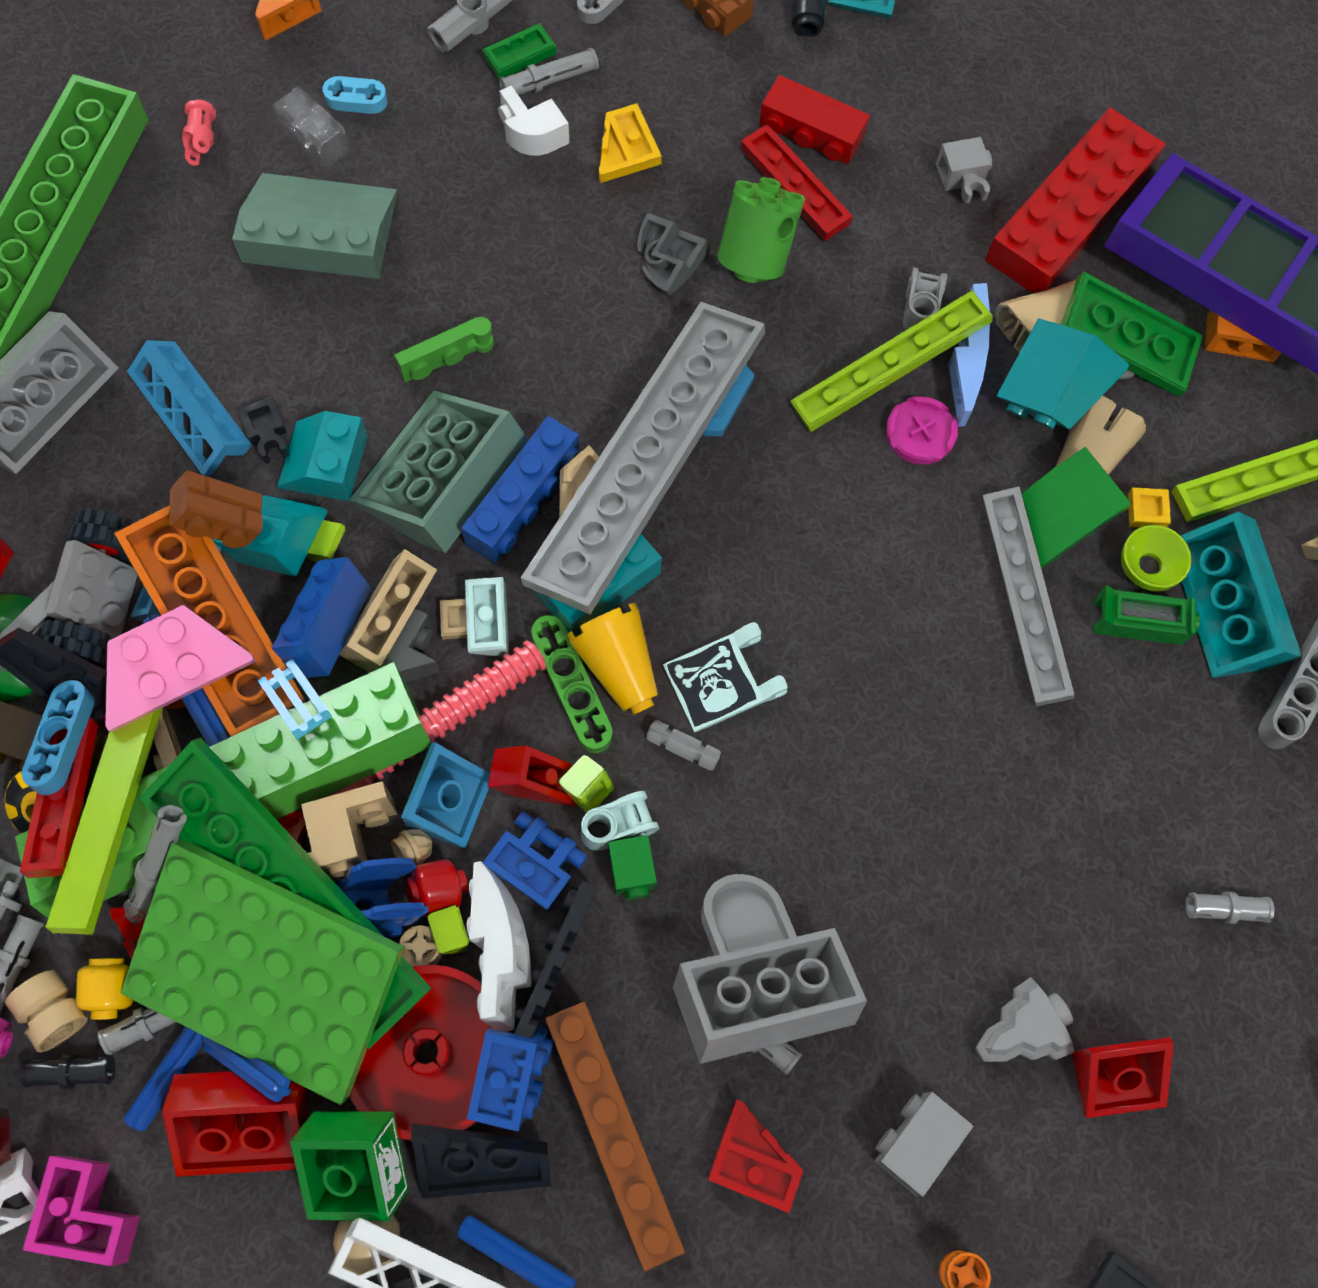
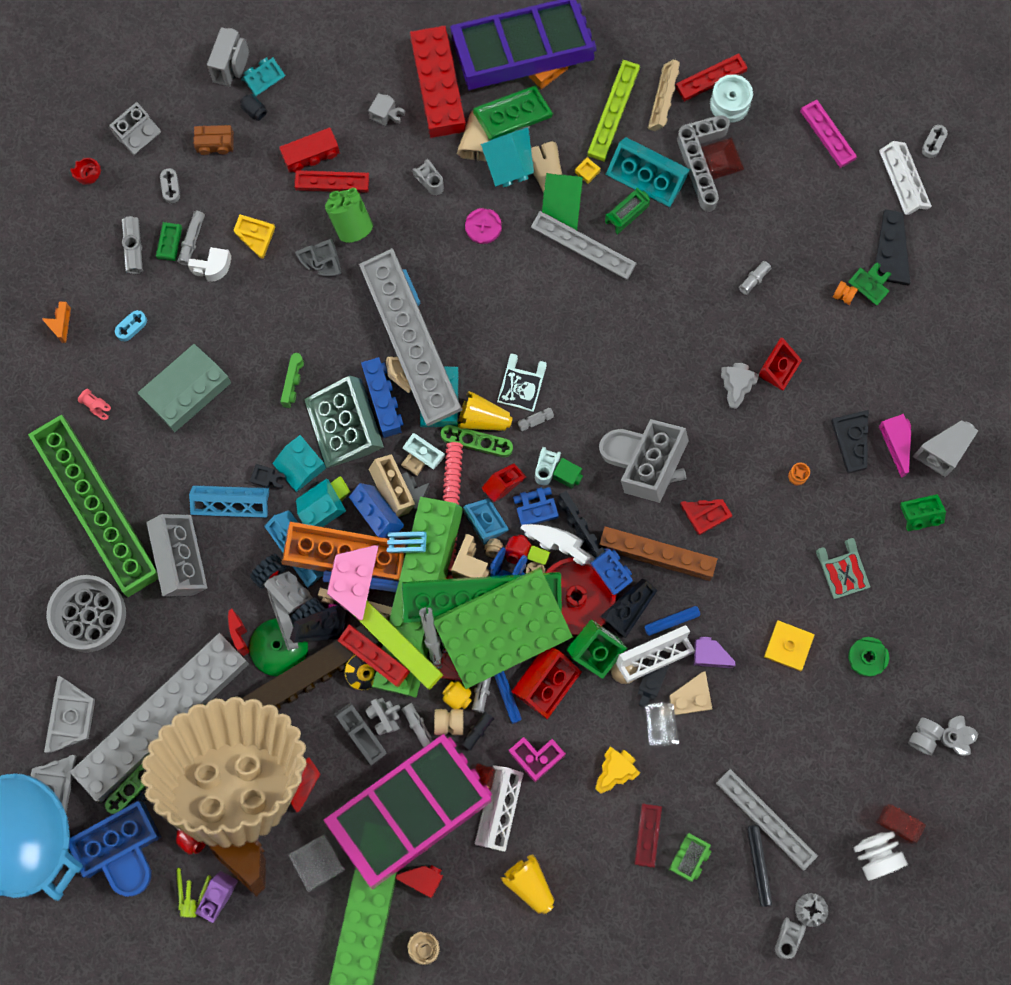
camera: 45 degrees left, 5 degrees up
(62, 754) = (358, 642): dark azure beam -> none
(215, 510) = (306, 514): dark orange brick -> none
(255, 1071) = (535, 659): blue axle -> none
(311, 128) = (136, 356): clear brick -> none
(587, 783) = (522, 465): lime slope -> none
(891, 361) = (446, 213): lime tile -> none
(922, 1142) = (746, 451): light grey brick -> none
(969, 364) = (471, 183): light blue slope -> none
(1164, 546) = (612, 179): lime piece -> none

